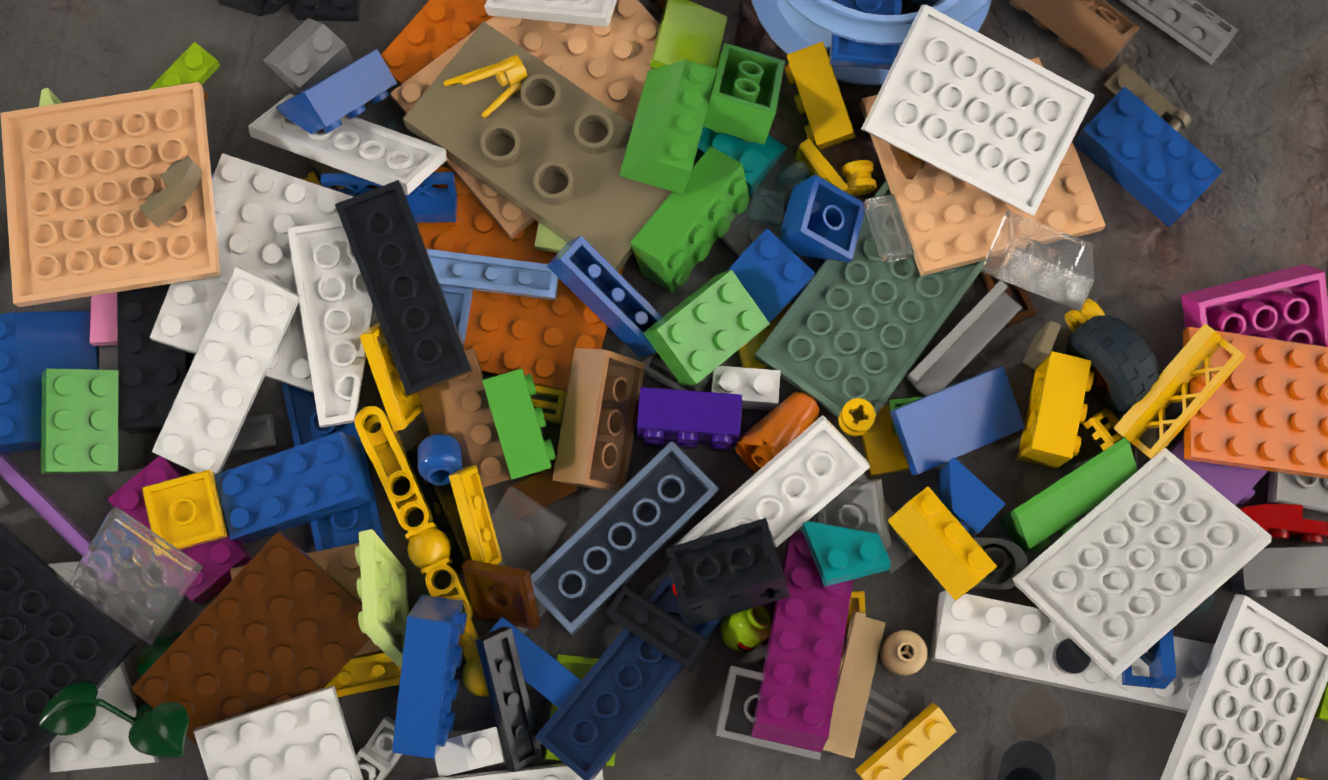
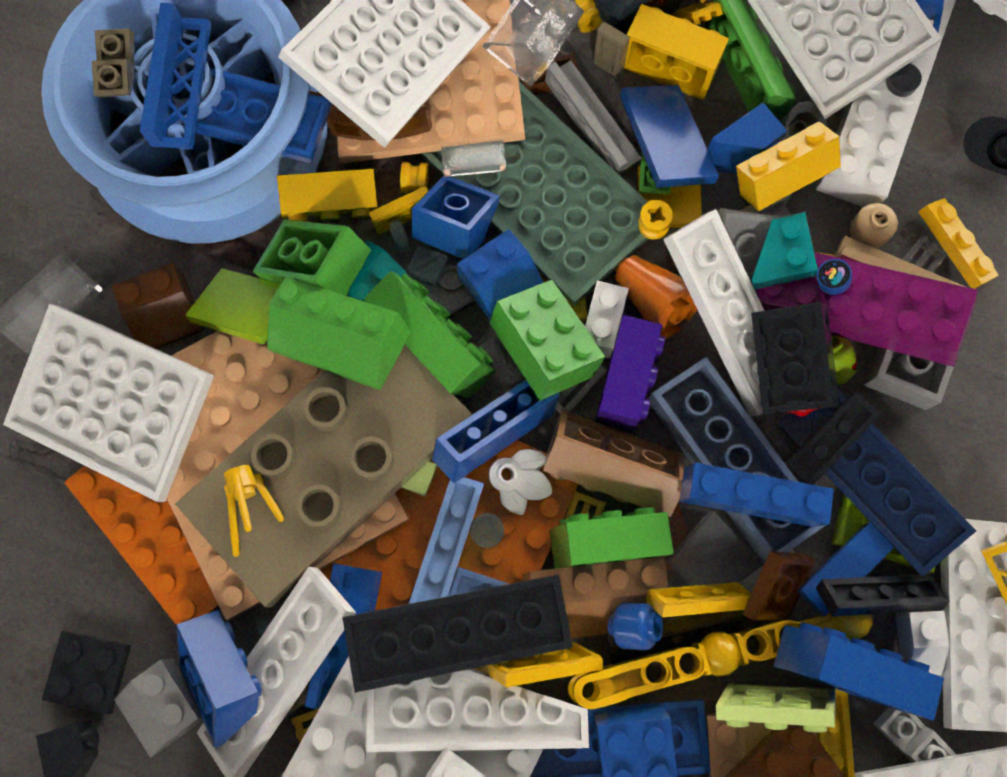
camera: 75 degrees left, 0 degrees up
(511, 310) = (487, 530): none -> clear light blue tile
(562, 336) = (525, 480): none -> white plate
(580, 548) = (756, 495): none -> blue brick
(822, 598) = (834, 276): none -> tile

